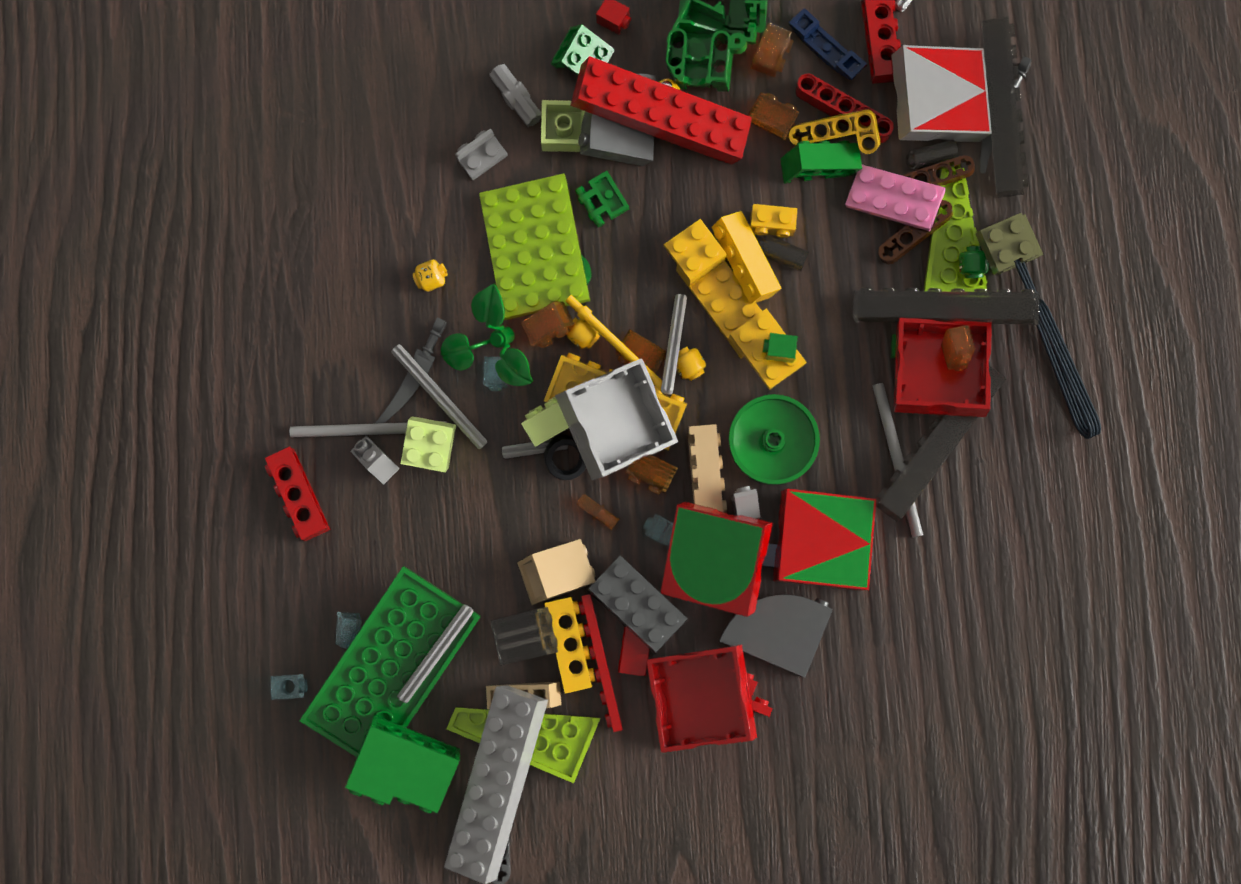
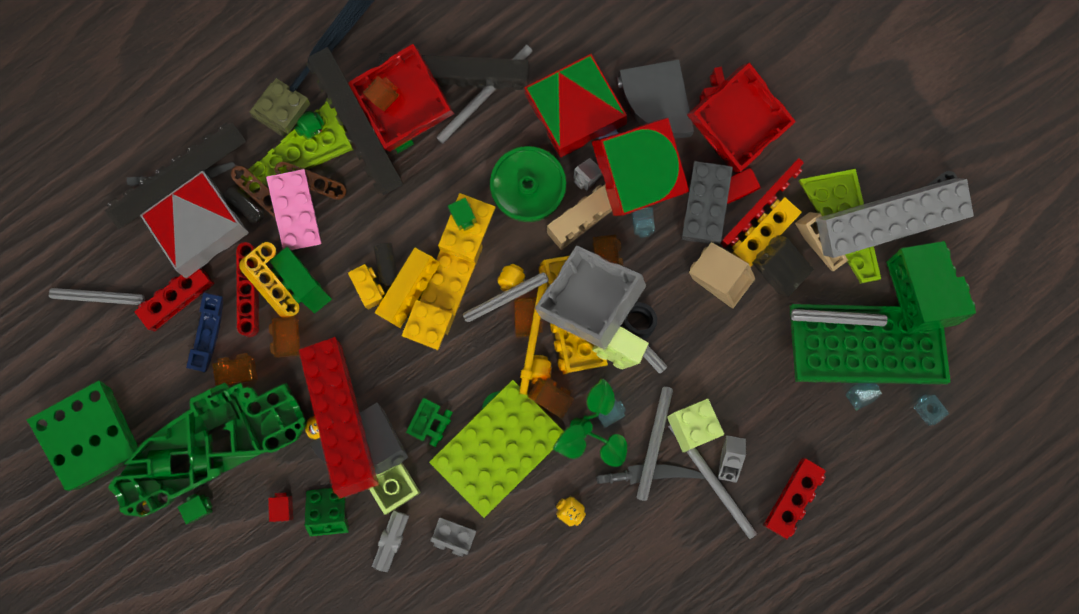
camera: 125 degrees left, 0 degrees up
(597, 511) = (659, 274): clear orange axle -> none

